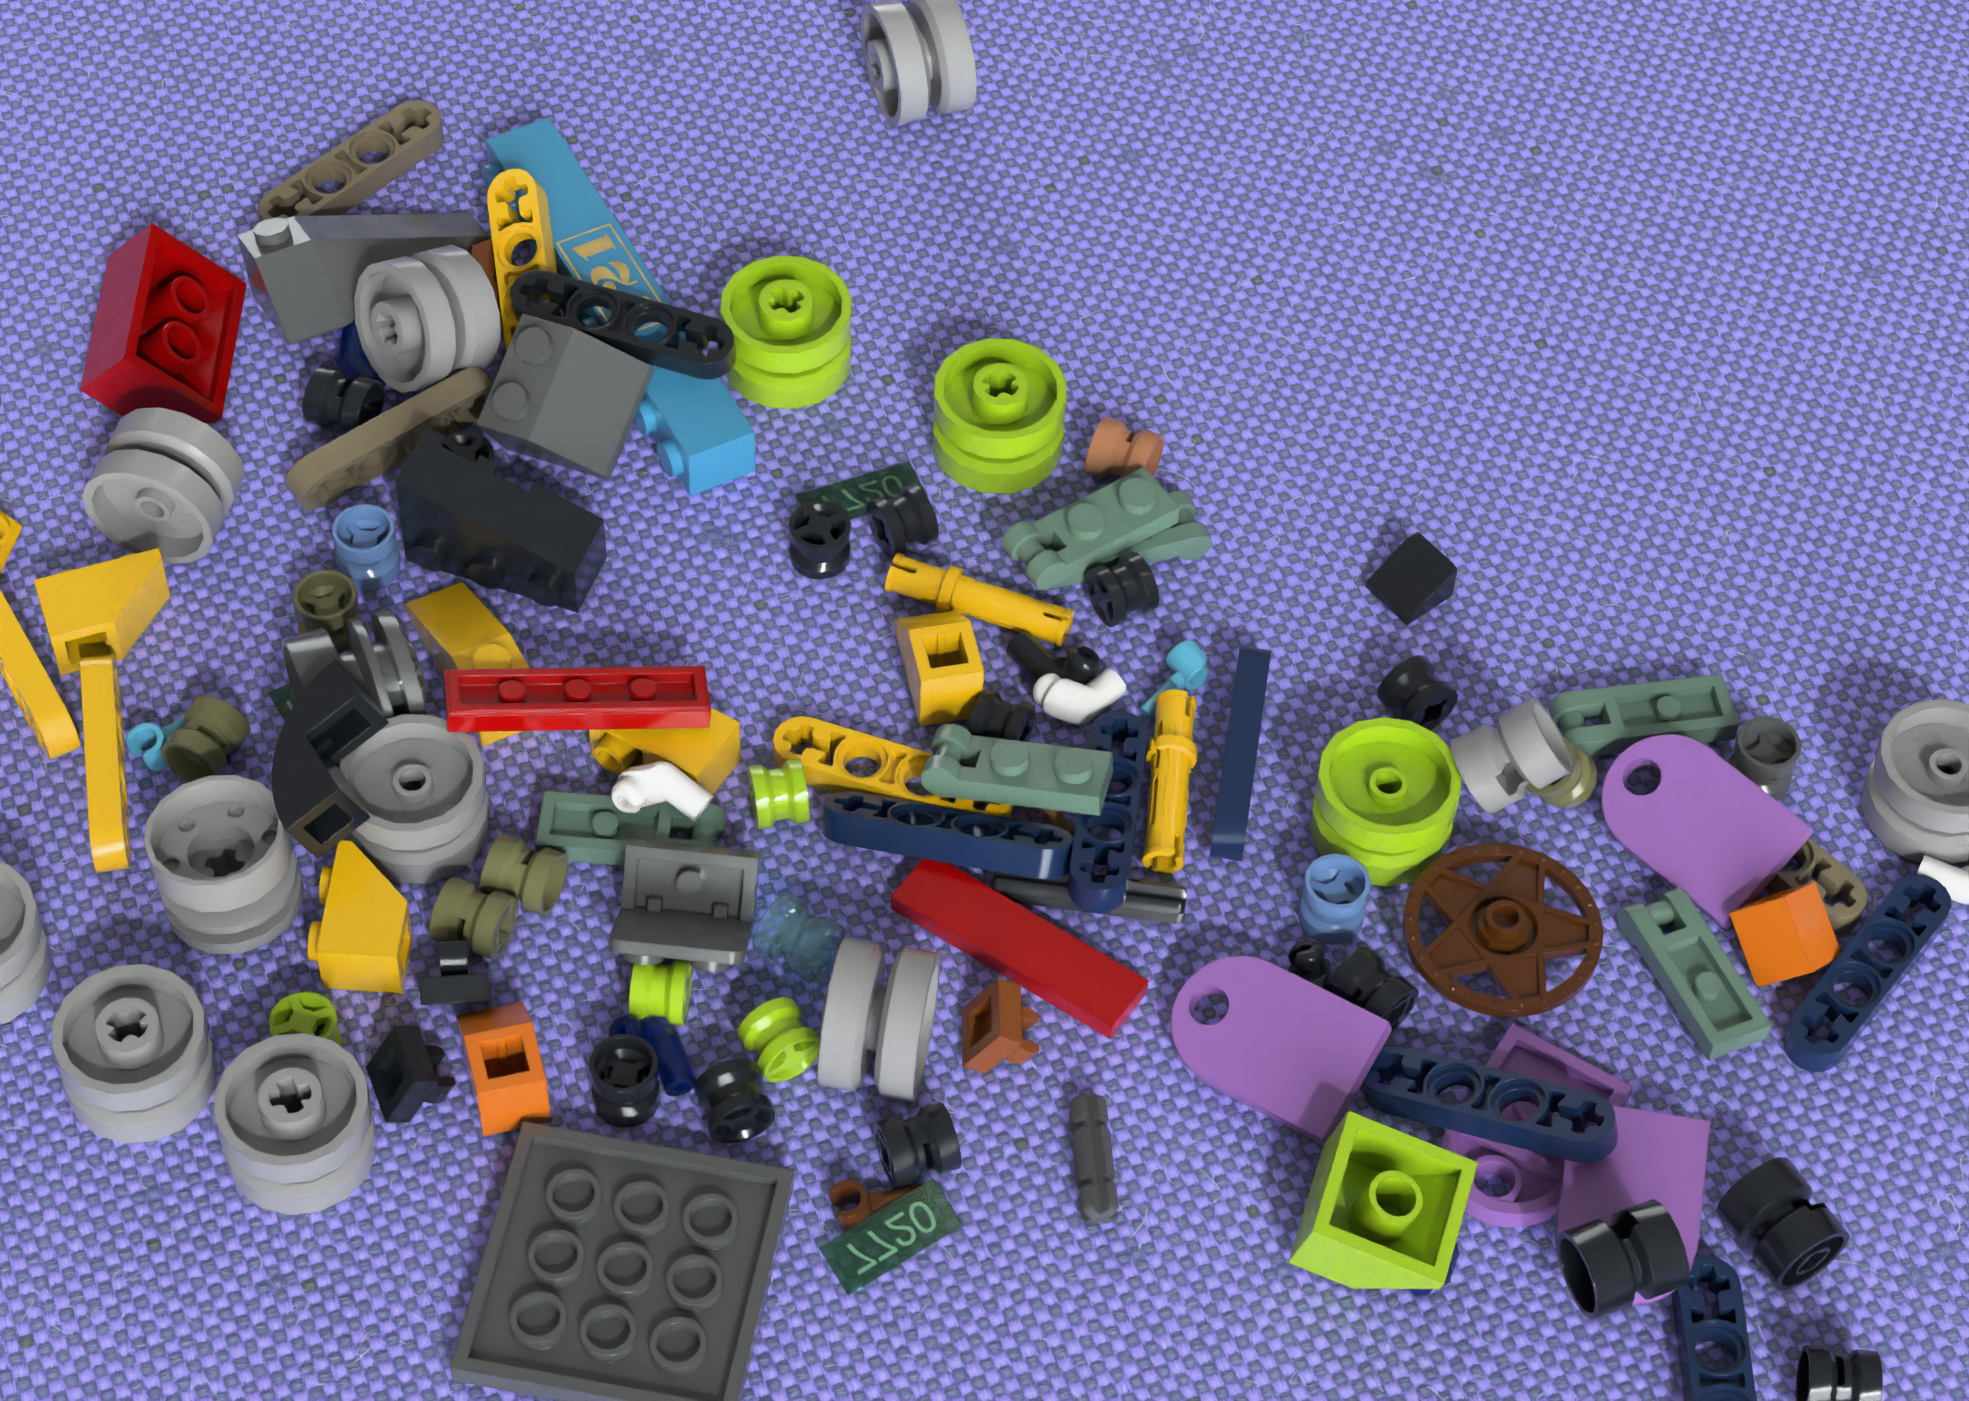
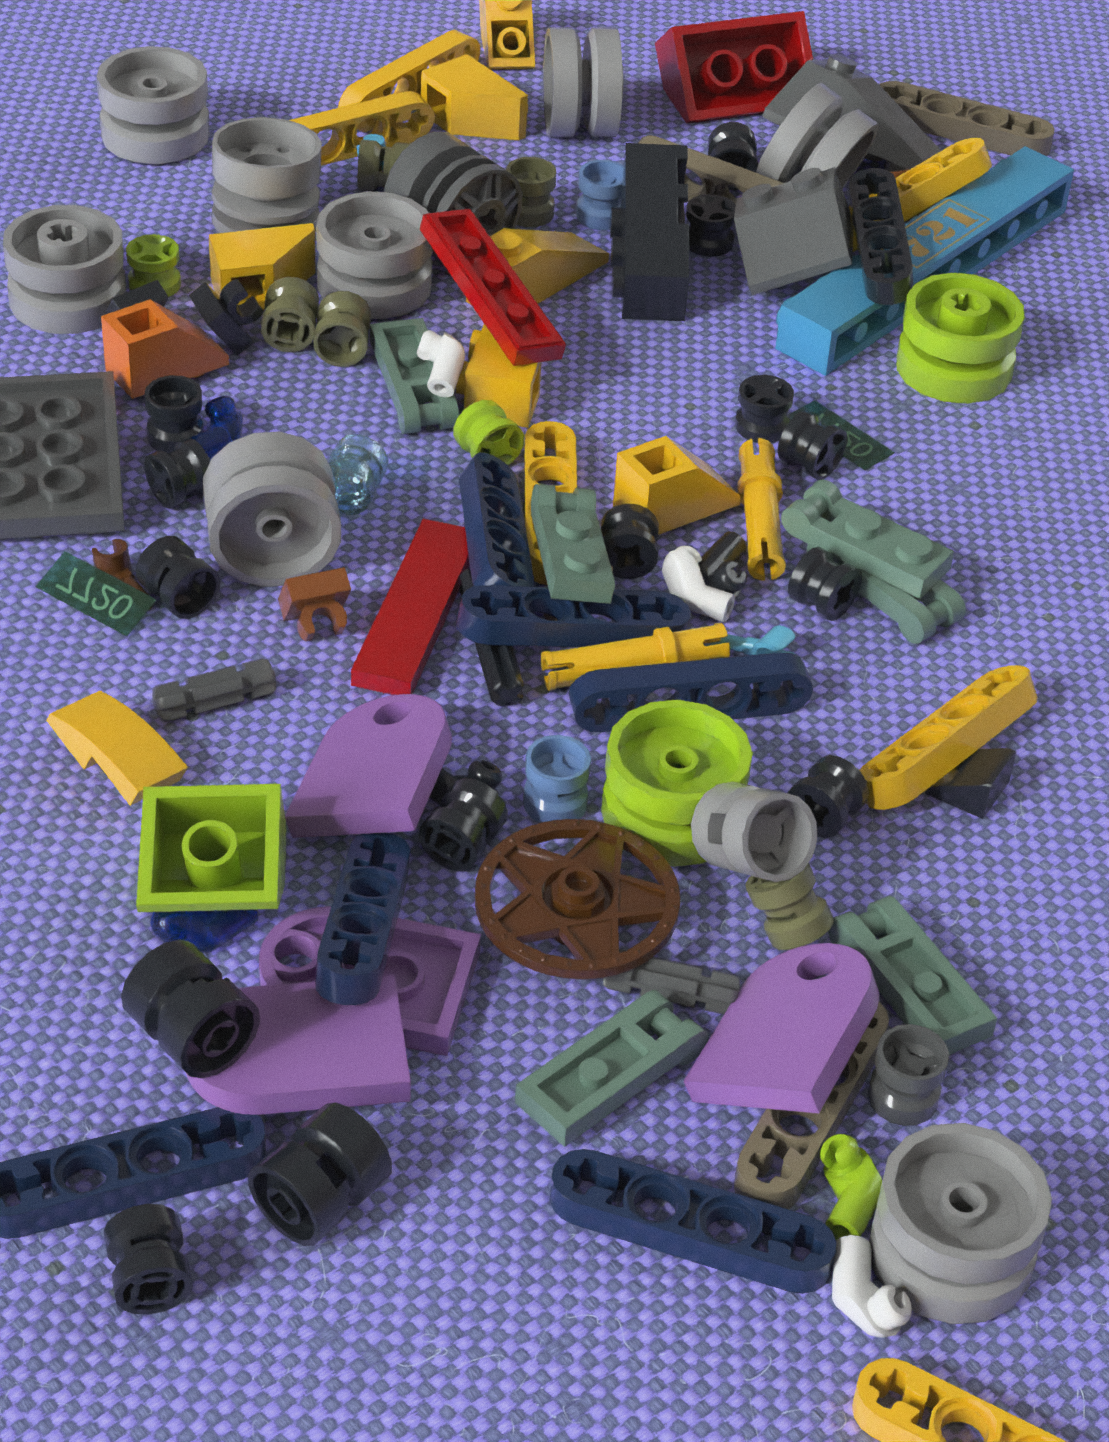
camera: 70 degrees right, 10 degrees down
(134, 1053) = (100, 173): light grey wheel -> none
(322, 729) = (348, 163): black brick -> none
(661, 991) = (274, 401): lime wheel -> none
(686, 904) = (360, 402): dark grey bracket -> none
(999, 415) = (959, 468): lime wheel -> none
(1120, 451) = (980, 557): nougat wheel -> none
(1155, 1263) = (120, 742): none -> yellow slope
(1361, 575) = (948, 736): none -> yellow beam
(1611, 878) = (679, 983): none -> dark grey axle
(1785, 934) = (693, 1128): orange panel -> none
(1863, 844) = (853, 1182): none -> lime arm

